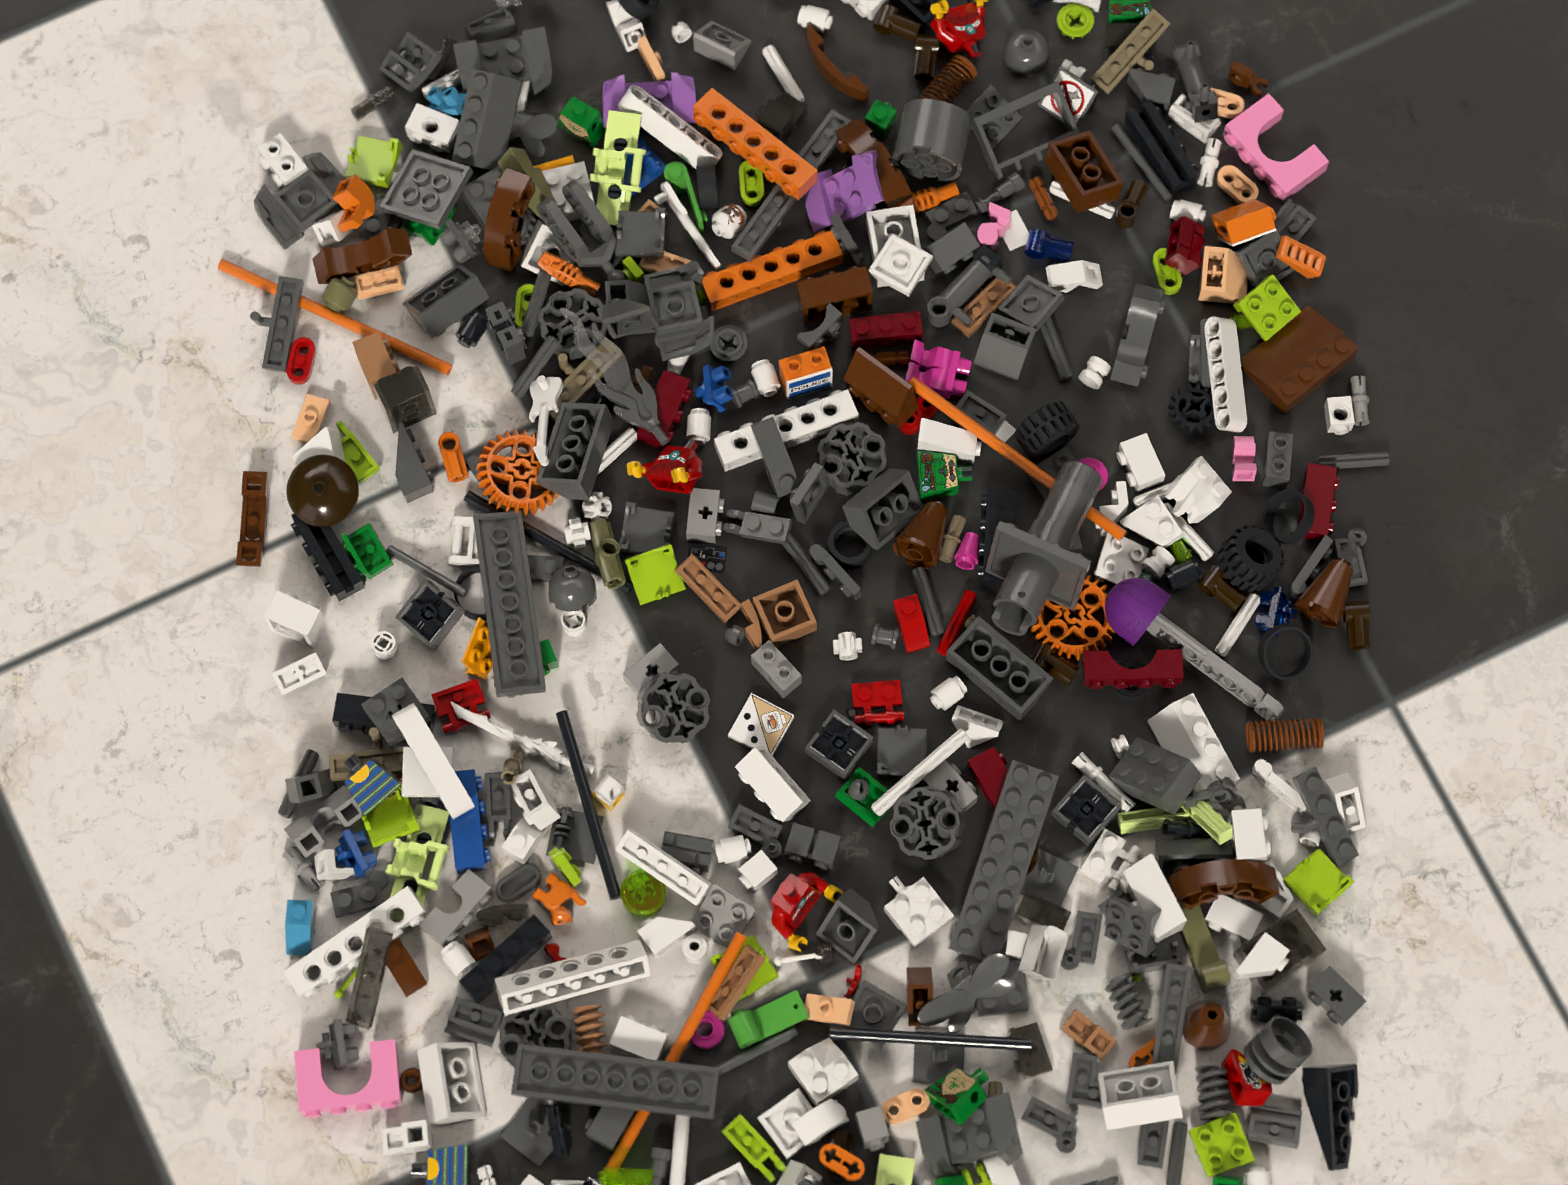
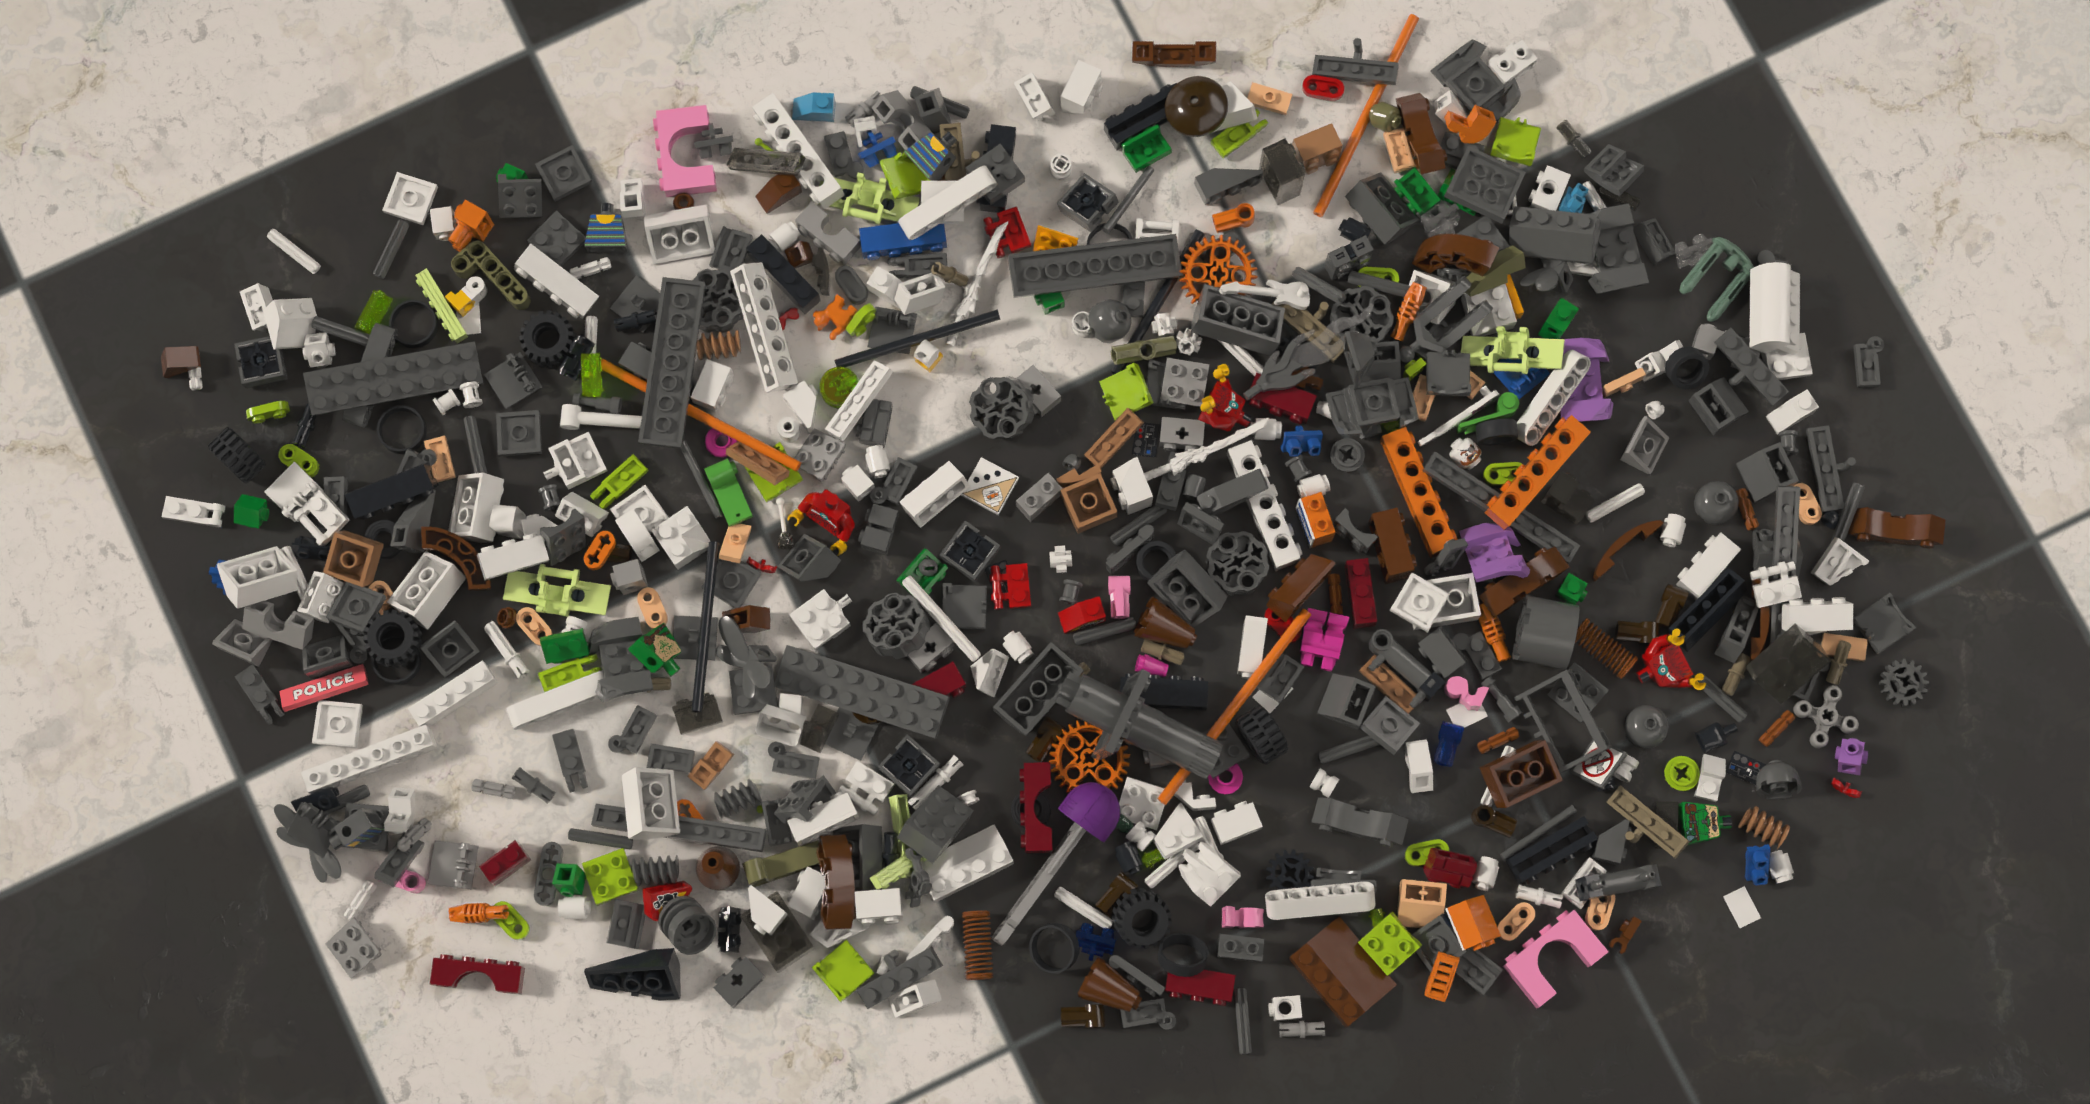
camera: 90 degrees right, 5 degrees up
(428, 264) = (1417, 191): none -> green bracket
(645, 509) = (1184, 382): none -> light grey hinge
(730, 492) = (1195, 455): none -> white sword
(766, 566) = (1132, 487): none -> white slope
(881, 584) = (1119, 596): none -> bright pink piece
(939, 475) = (1222, 641): torso -> none
(957, 622) = (1085, 656): red axle -> none

